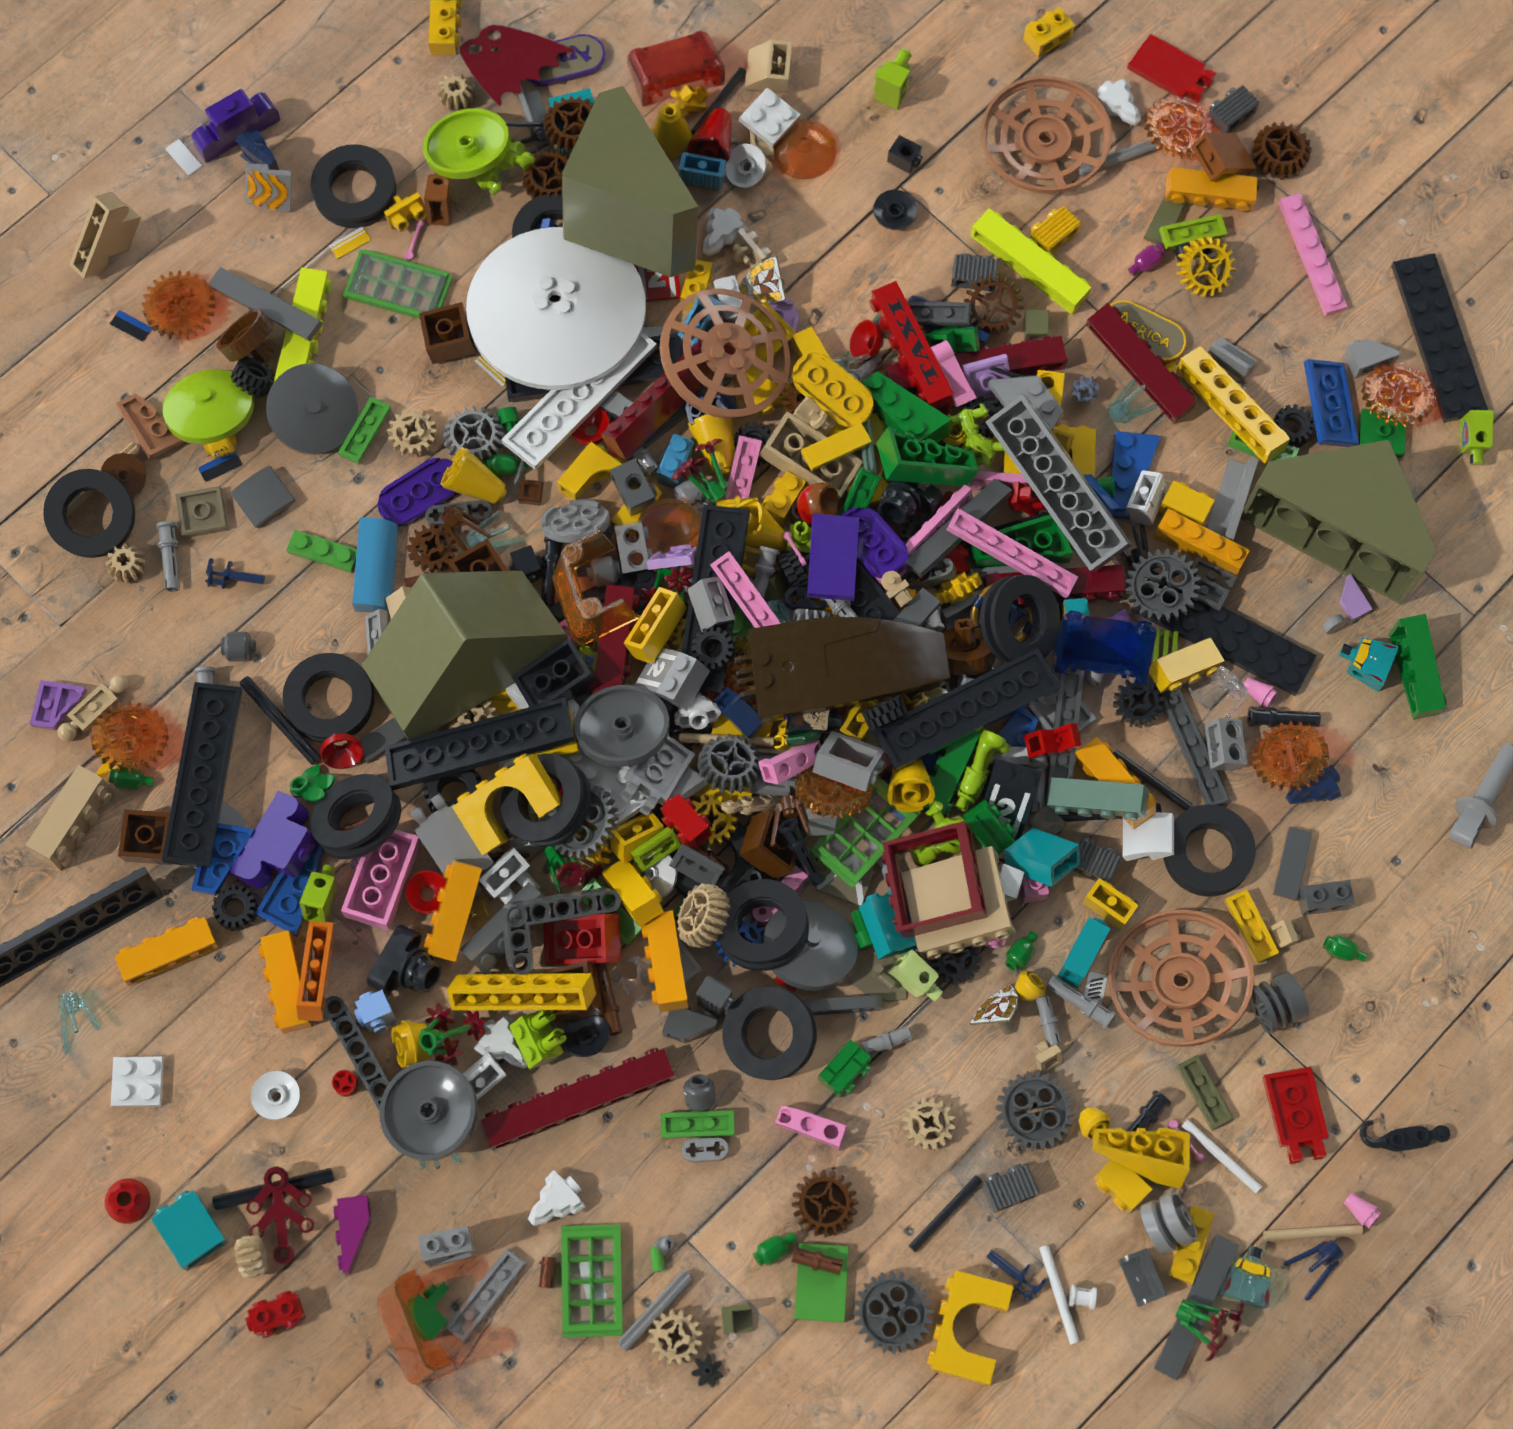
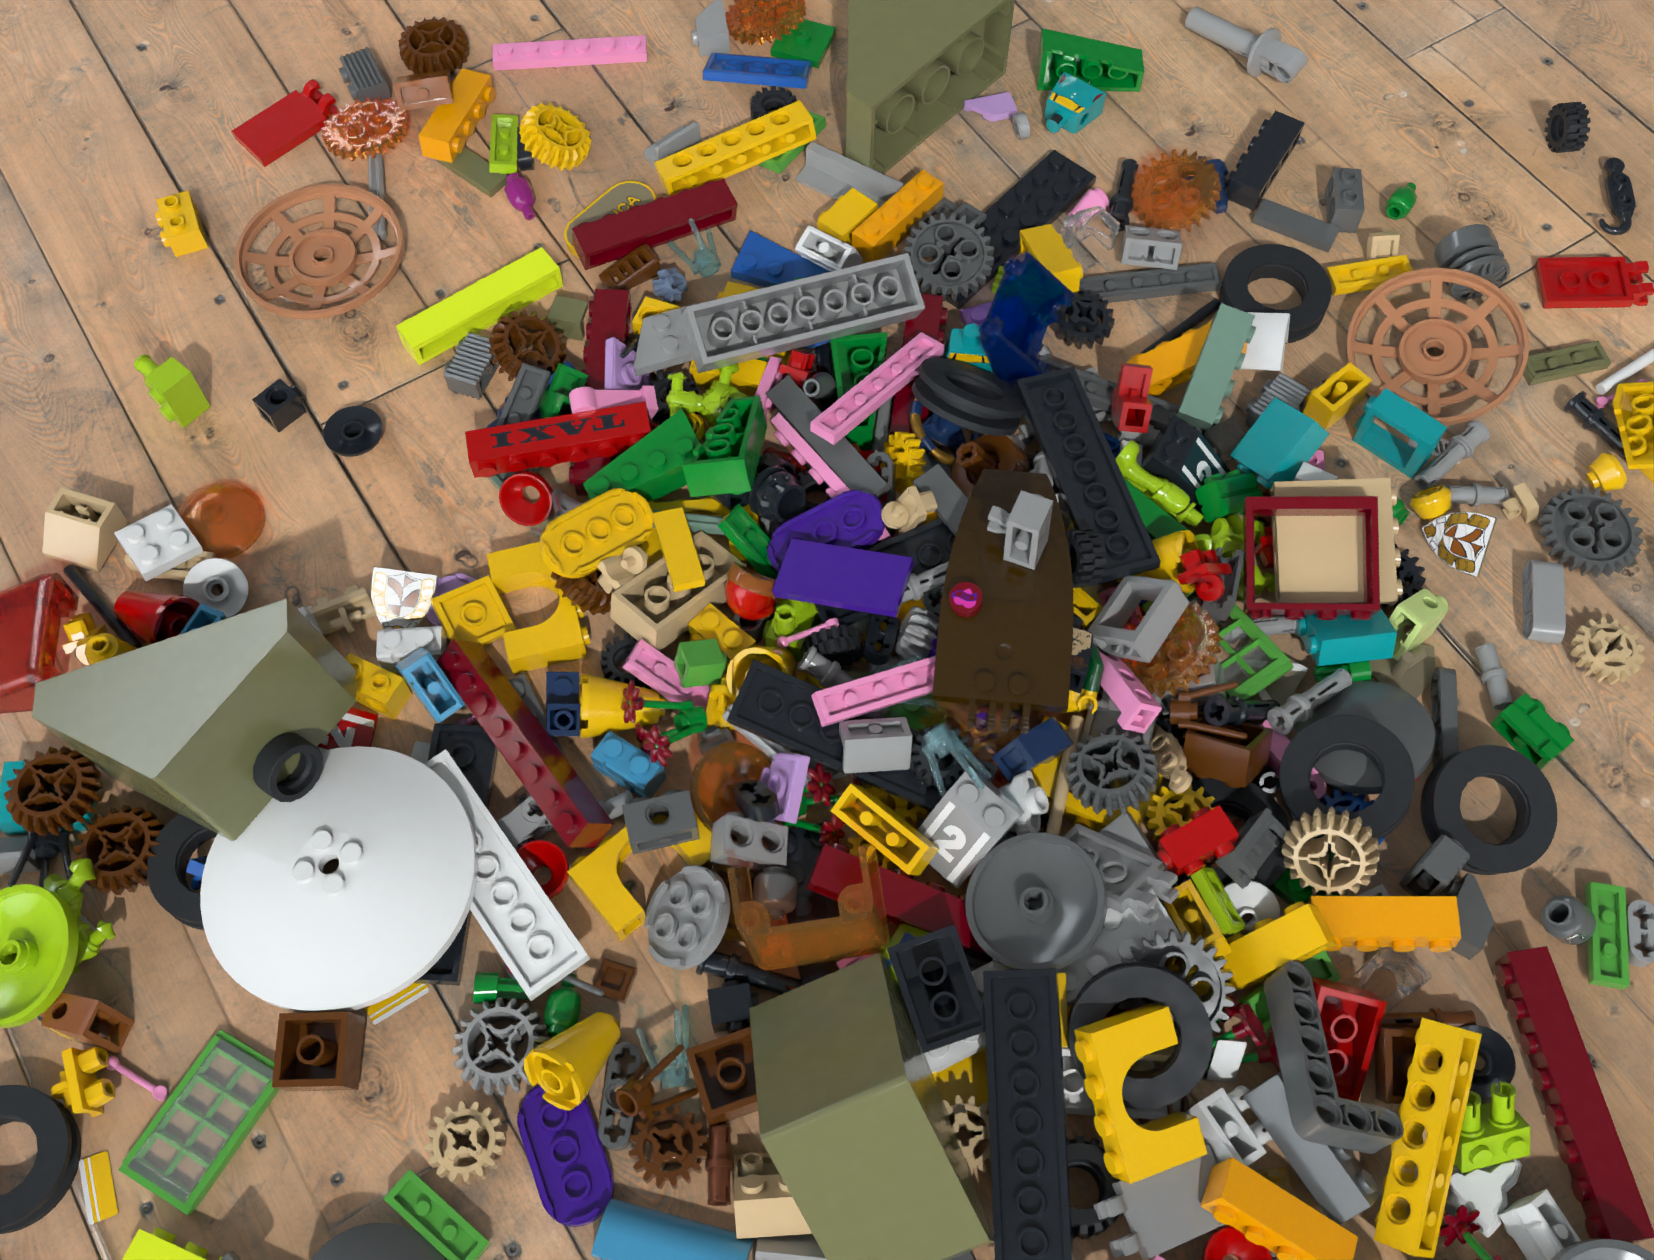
camera: 75 degrees left, 10 degrees down
(550, 871) = (1226, 1060): none -> white sticker
(615, 242) = (273, 757): none -> black tyre
(661, 544) = (756, 800): none -> black beam
(688, 492) = (685, 757): light grey head -> none
(715, 641) = (943, 742): none -> clear light blue plant
(718, 360) = (500, 659): nougat dish -> none
(754, 484) = (700, 663): none -> bright green brick
(811, 1126) = (1612, 787): bright pink leg -> none
(817, 631) = (966, 599): none -> dark red tile
(848, 922) = (1292, 715): none -> light grey pin
(874, 655) = (1024, 528): none -> light grey brick
(888, 807) = (1203, 571): none -> red hips
(901, 824) = (1222, 607): none -> dark grey hinge
(961, 1075) = (1543, 601): none -> light grey beam
(1009, 514) = (825, 386): none -> dark grey cone
(1055, 230) = (447, 268): yellow brick -> none
(1111, 361) = (634, 259): none -> reddish brown slope
(1119, 101) = (306, 174): white rock -> none
(1351, 826) = (1264, 160): none -> black brick
(1464, 1083) = (1567, 127): none -> black tyre

